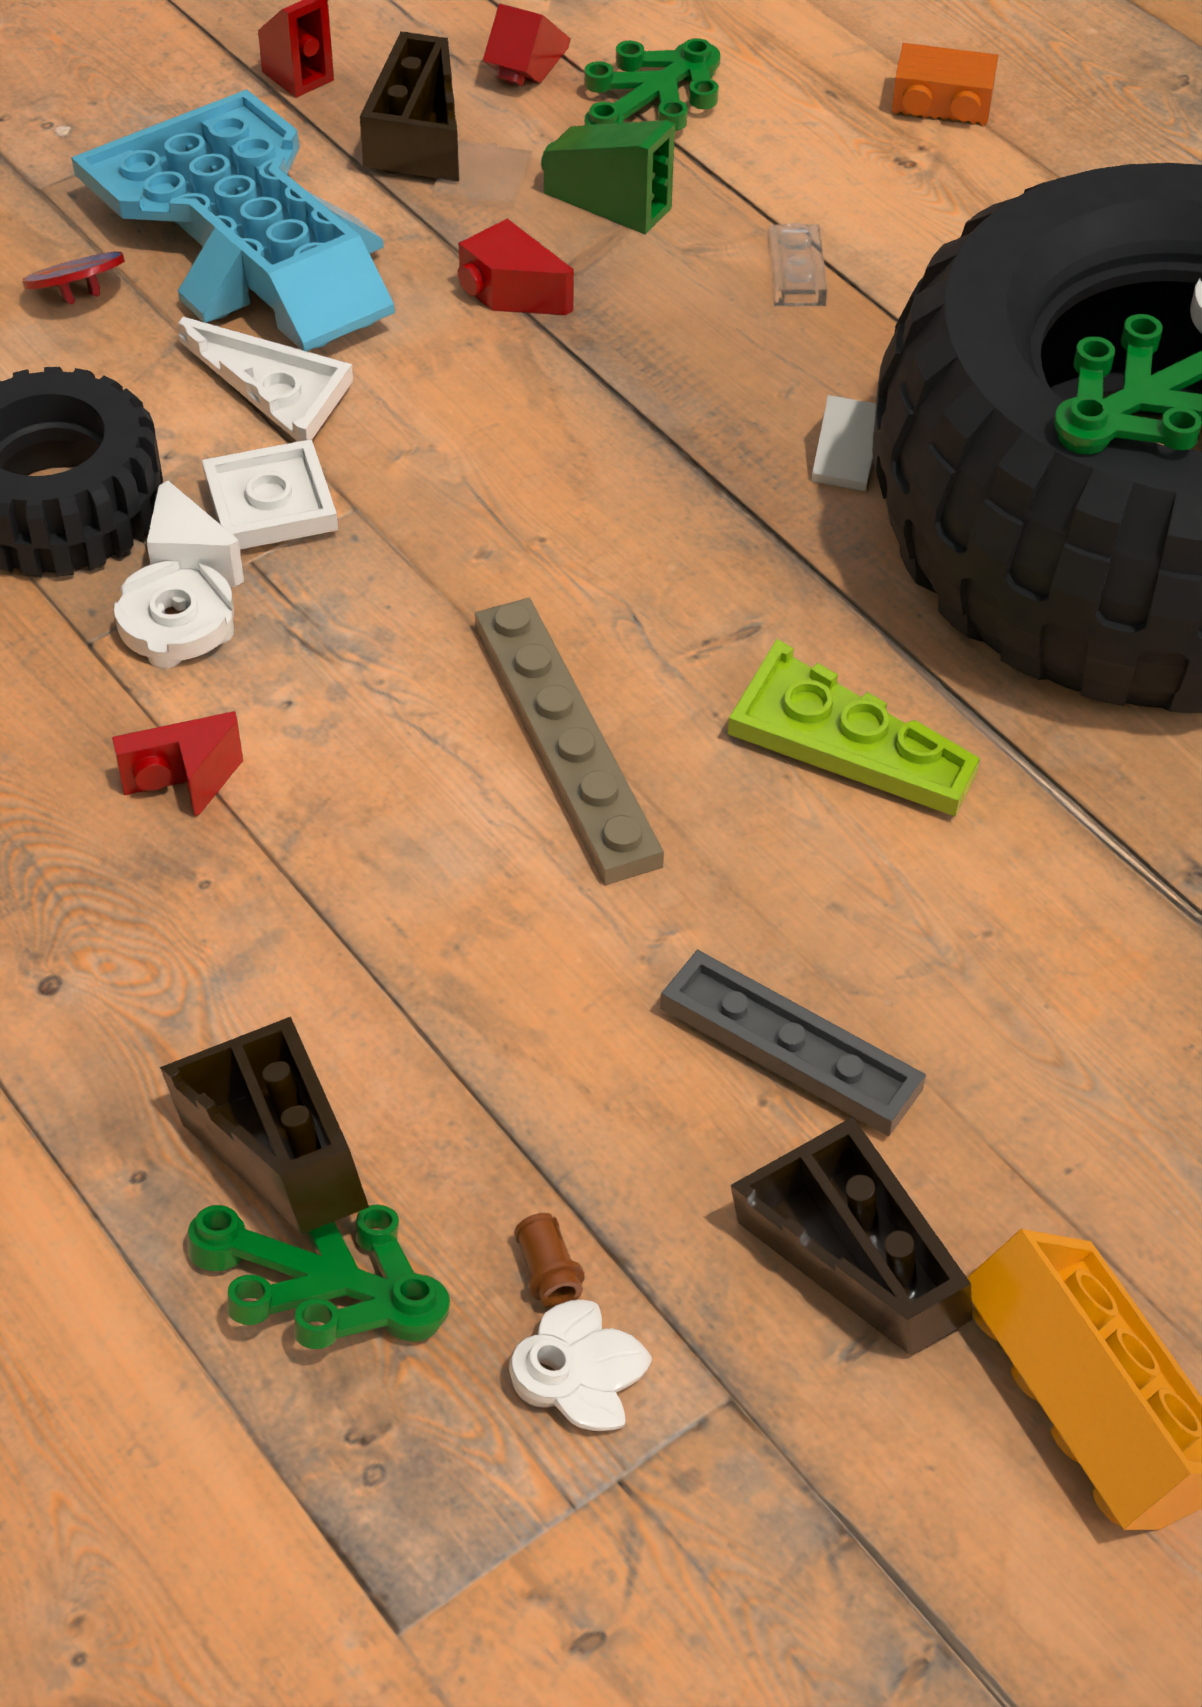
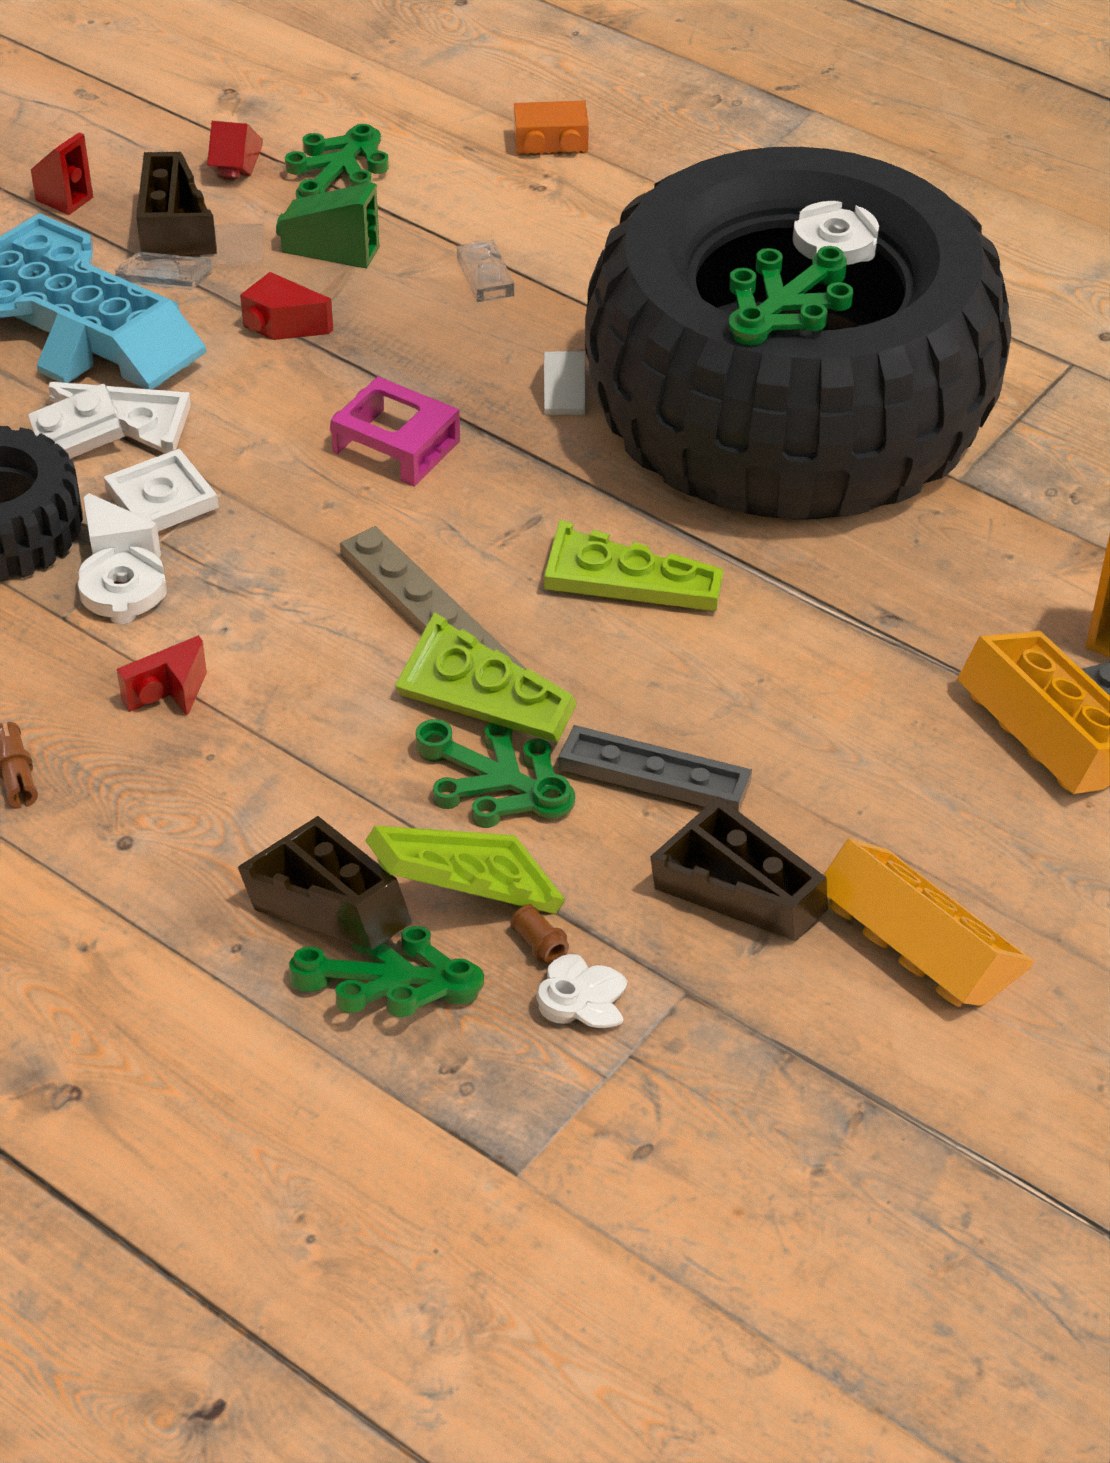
camera: 15 degrees left, 5 degrees down
(195, 381) = (79, 421): none -> white plate
(379, 192) = (164, 270): none -> clear plate
(468, 1134) = (466, 862): none -> lime wing
(572, 999) = (547, 795): none -> green plant
(589, 858) = (473, 680): none -> lime wing
(620, 493) = (416, 444): none -> dark pink window

